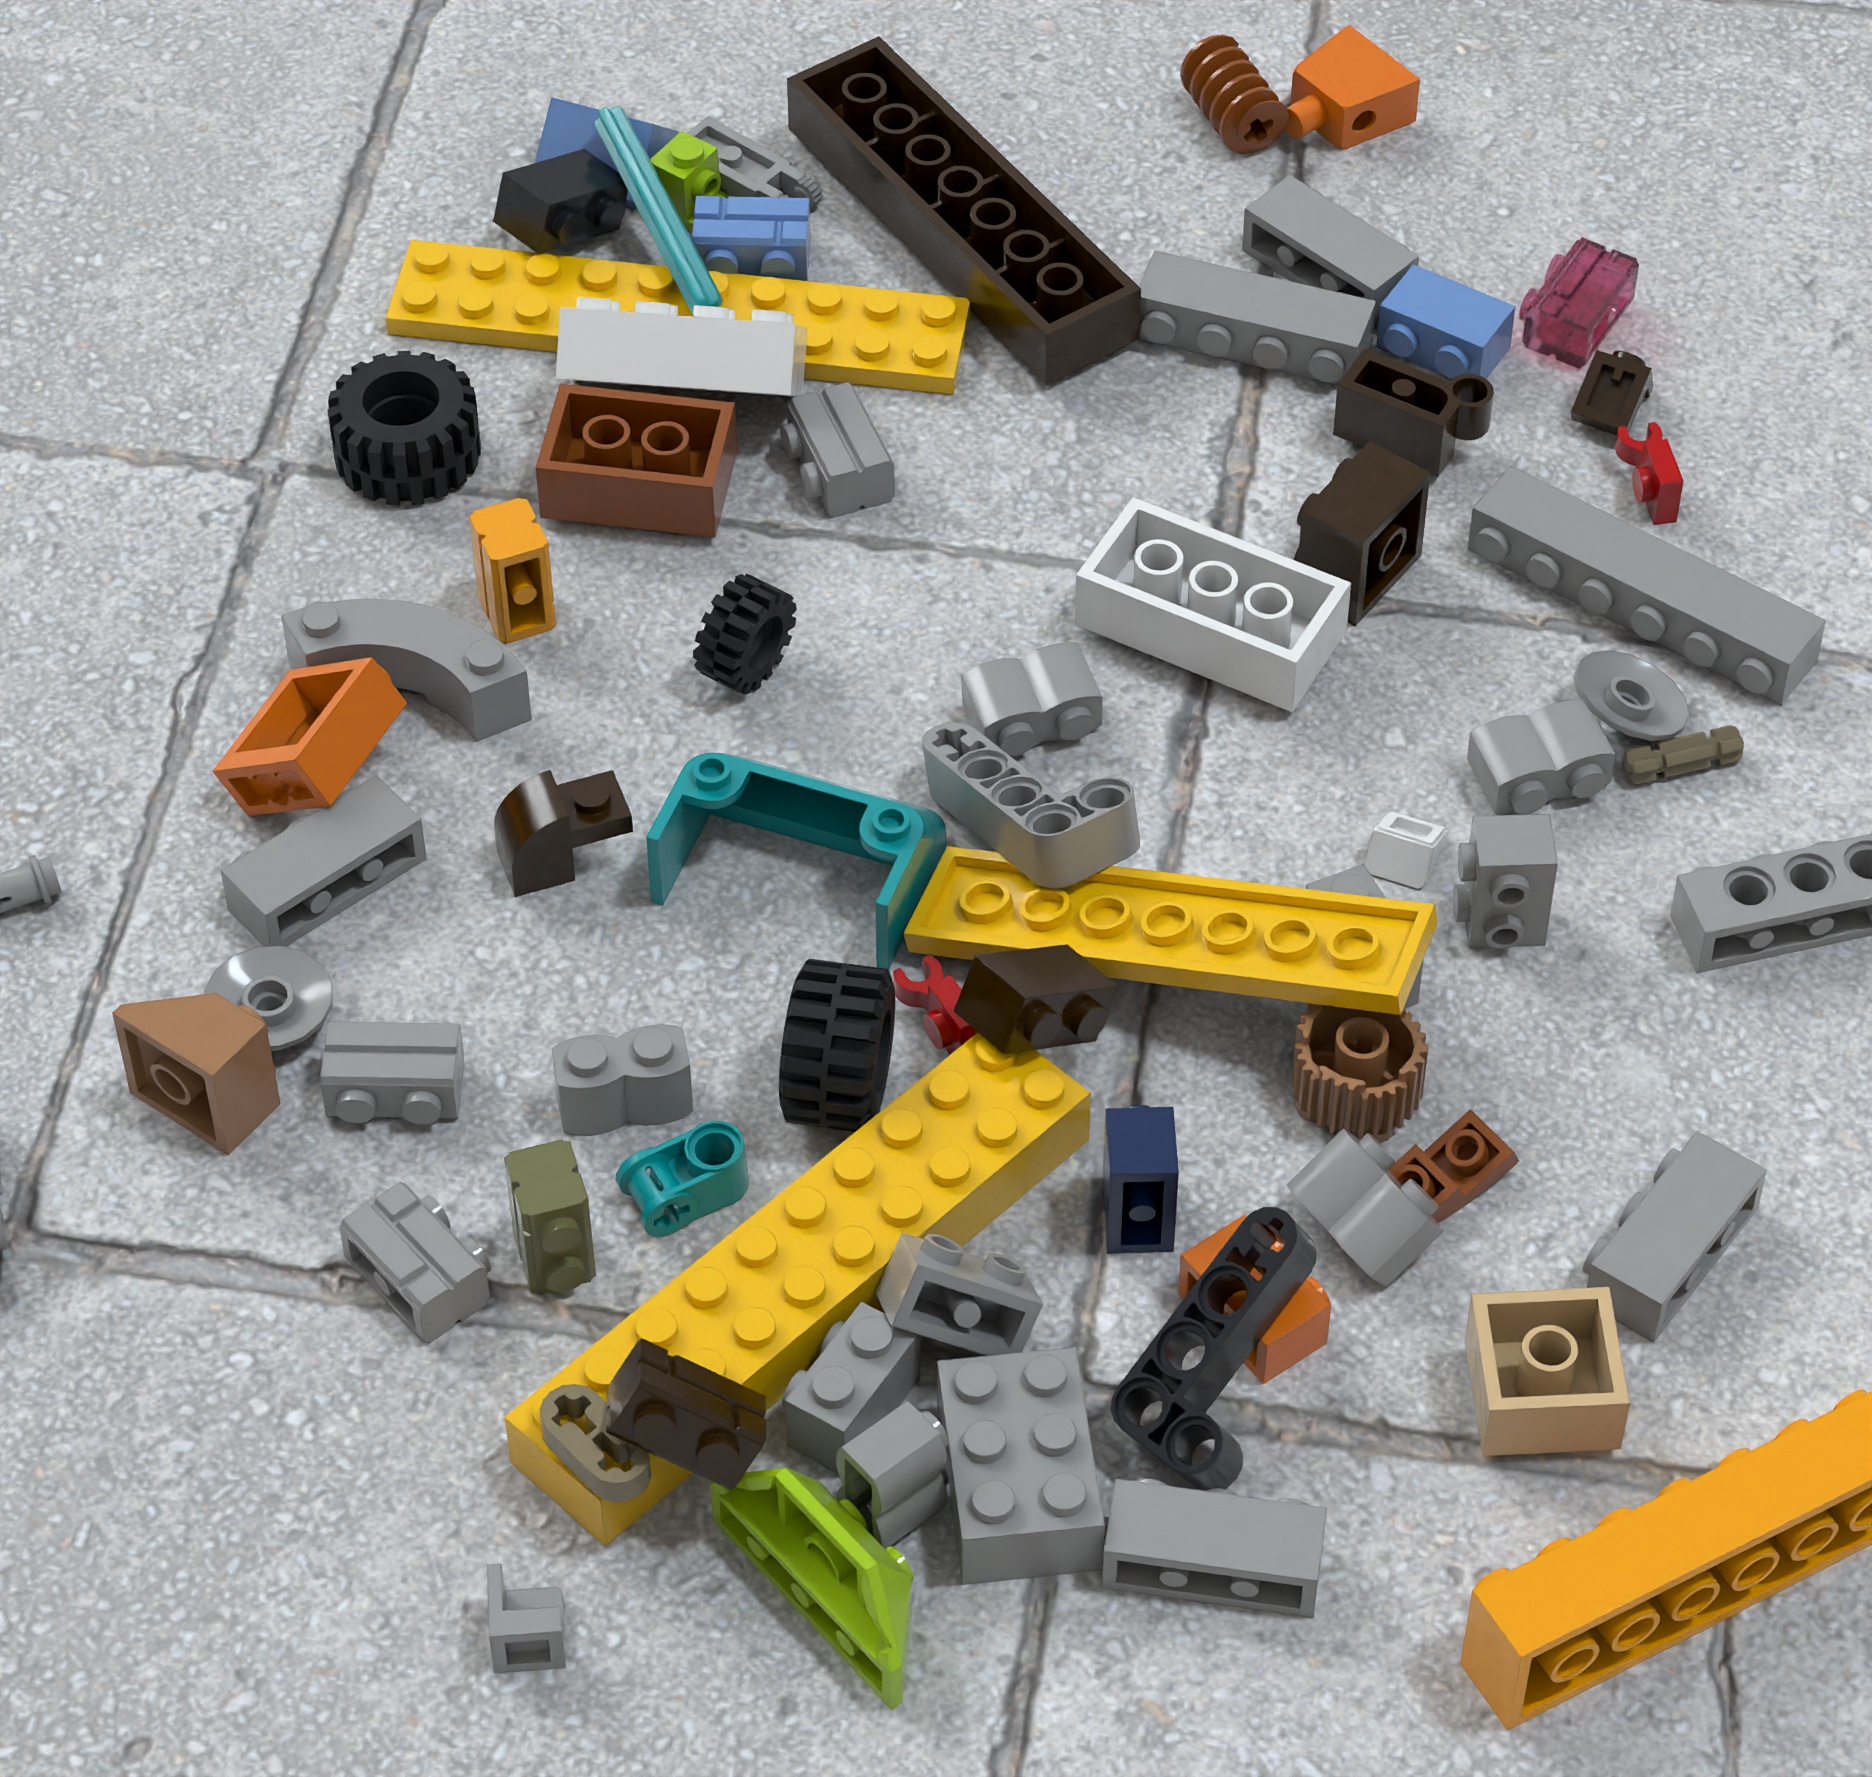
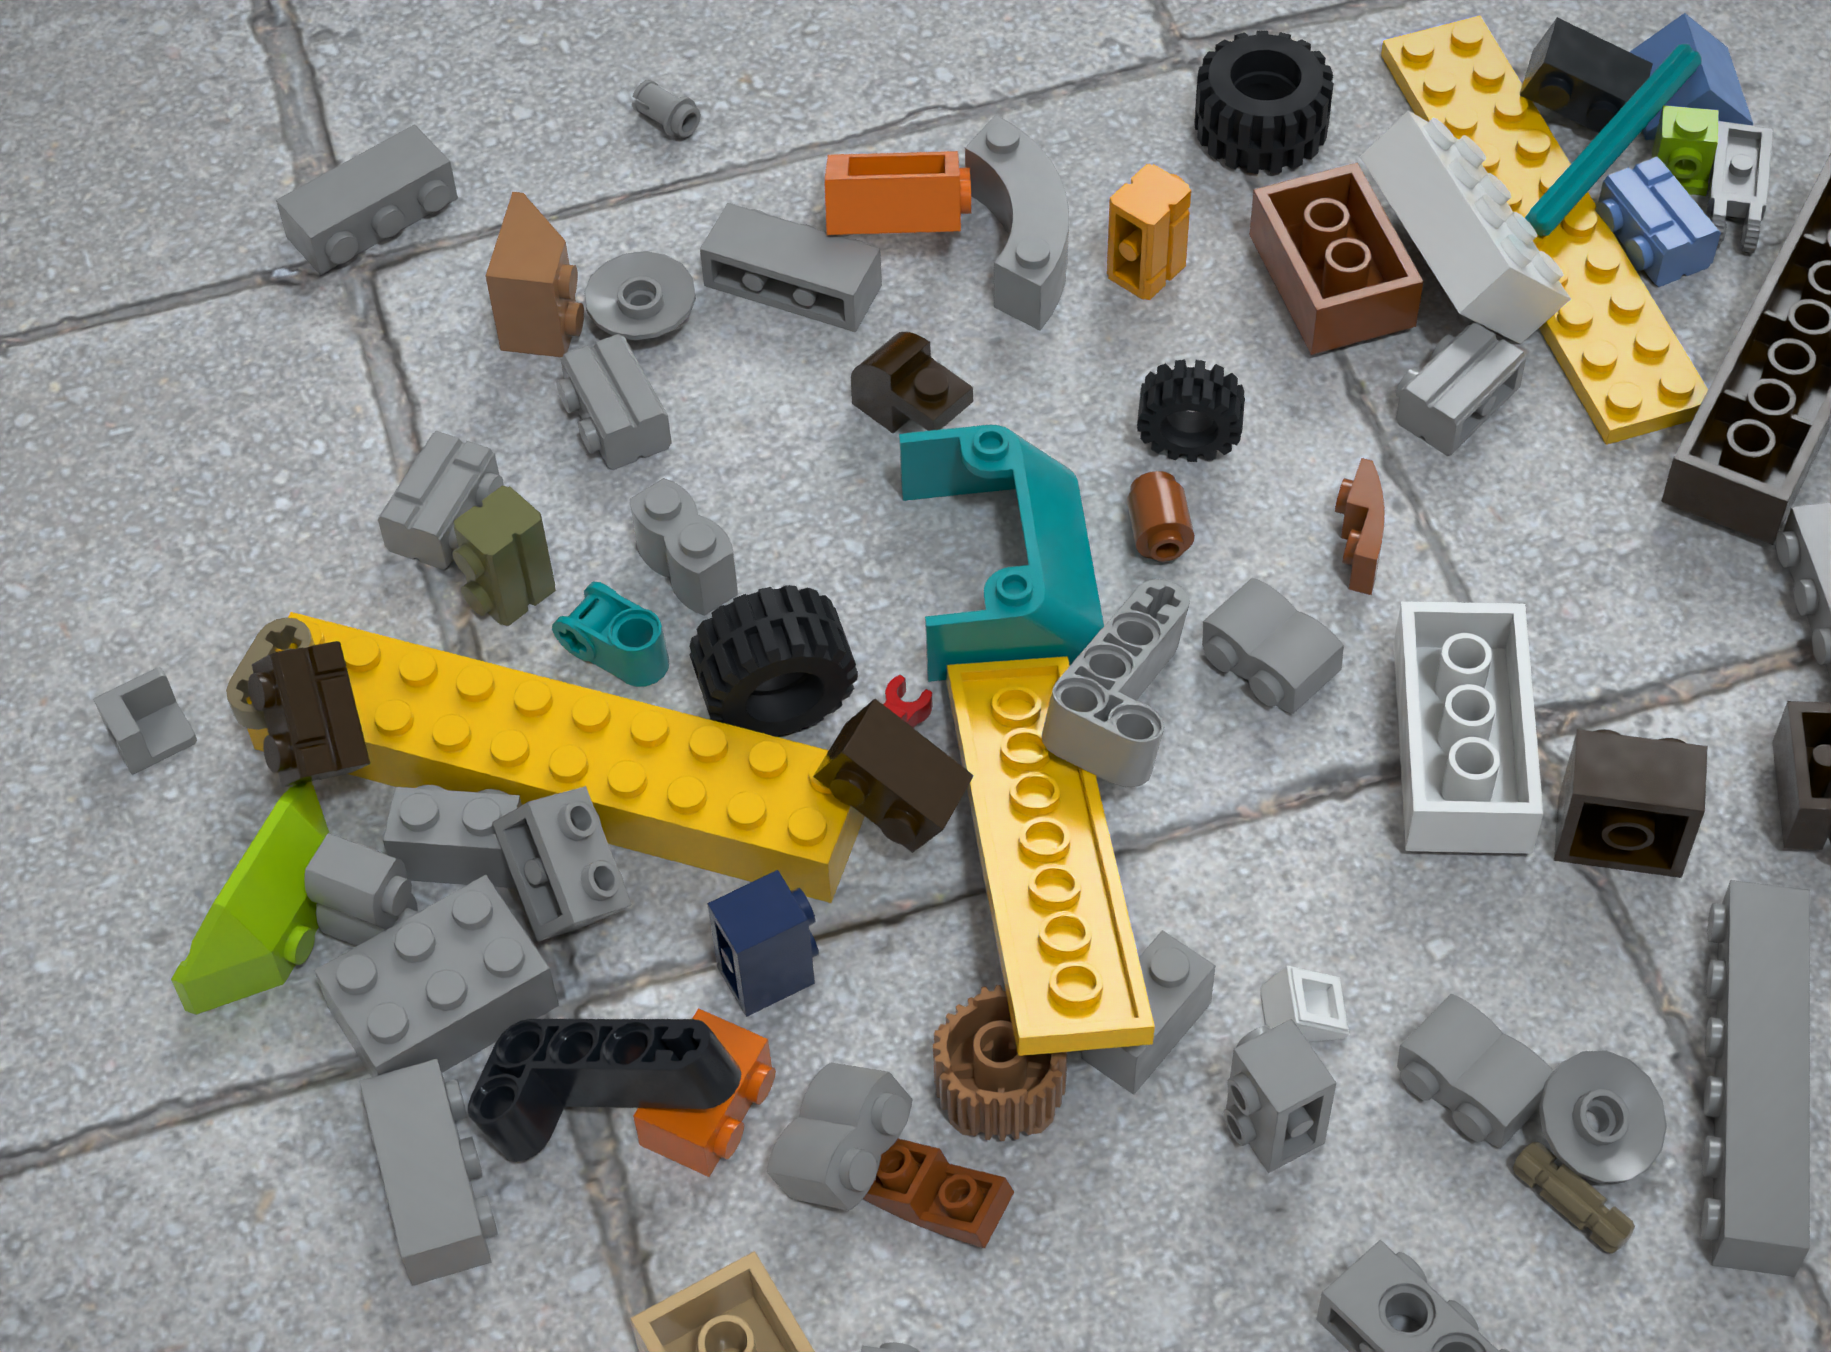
camera: 65 degrees right, 5 degrees up
(835, 715) = (1159, 516): none -> dark orange brick
(939, 574) = (1363, 525): none -> dark orange slope

